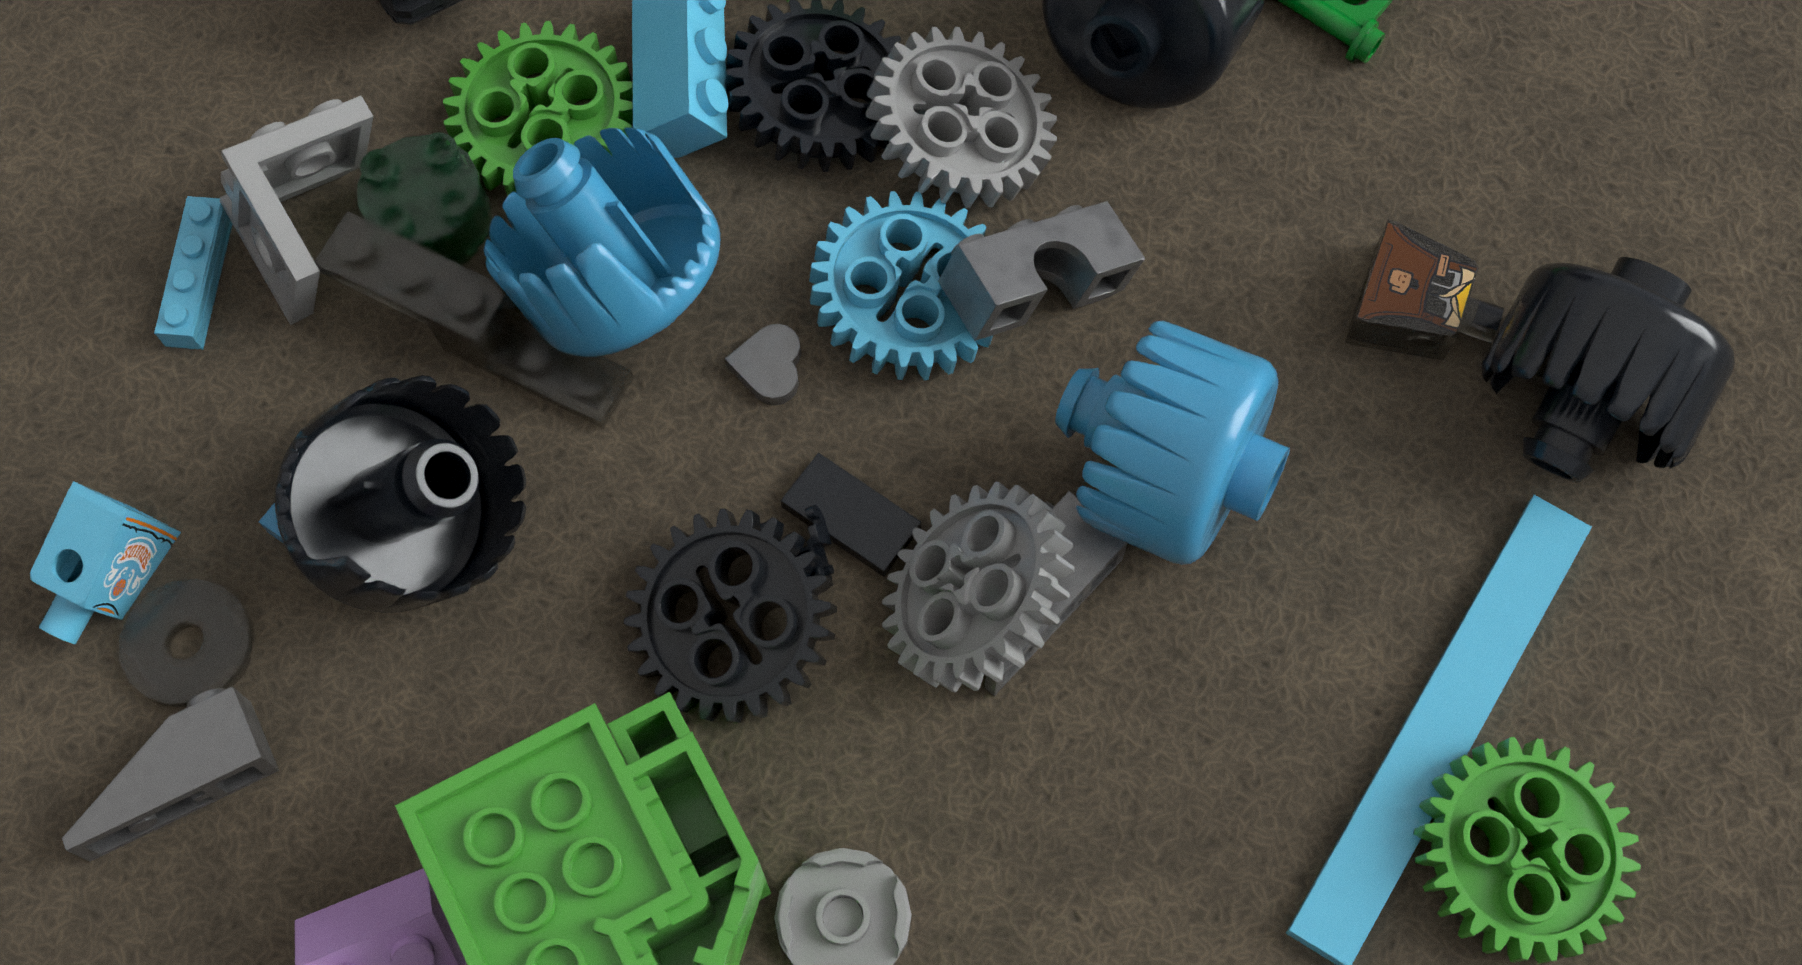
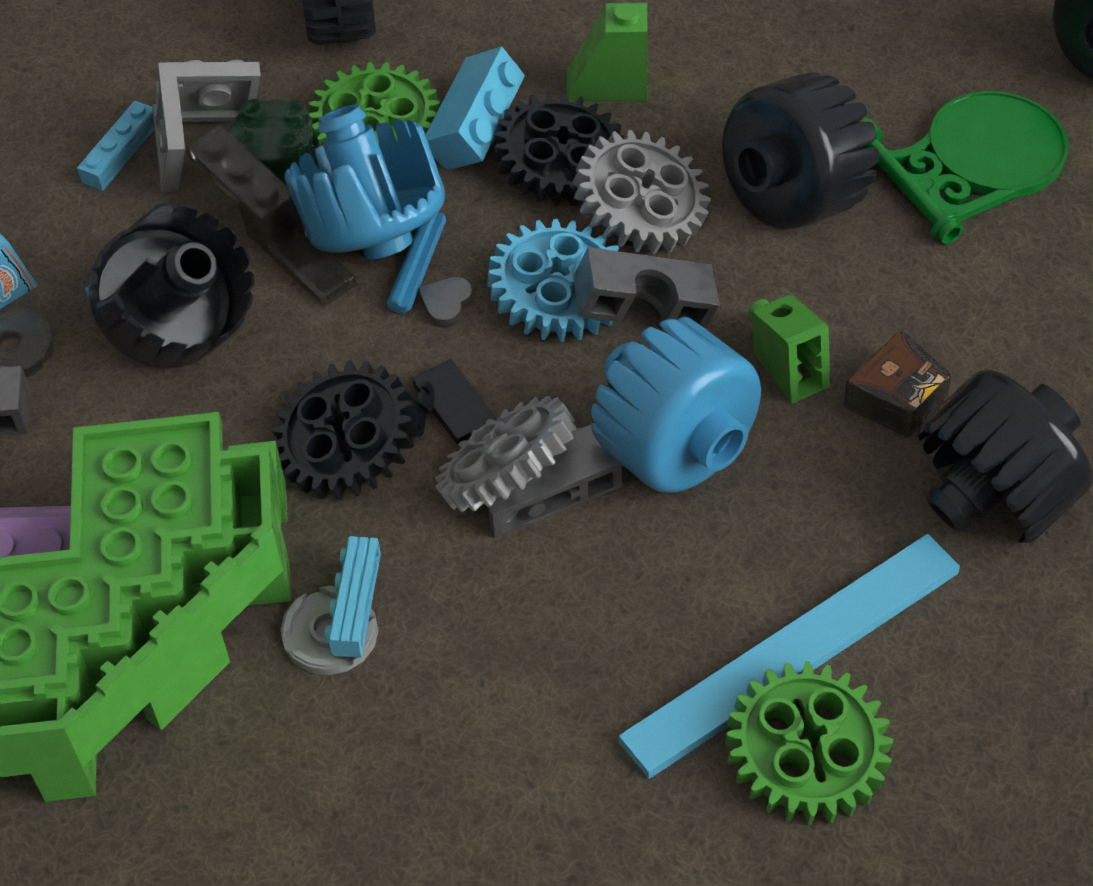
camera: 25 degrees right, 15 degrees down
(705, 346) = (415, 264): none -> dark azure axle
(865, 866) = (354, 597): none -> medium azure piece
(1256, 283) = (789, 331): none -> bright green torso

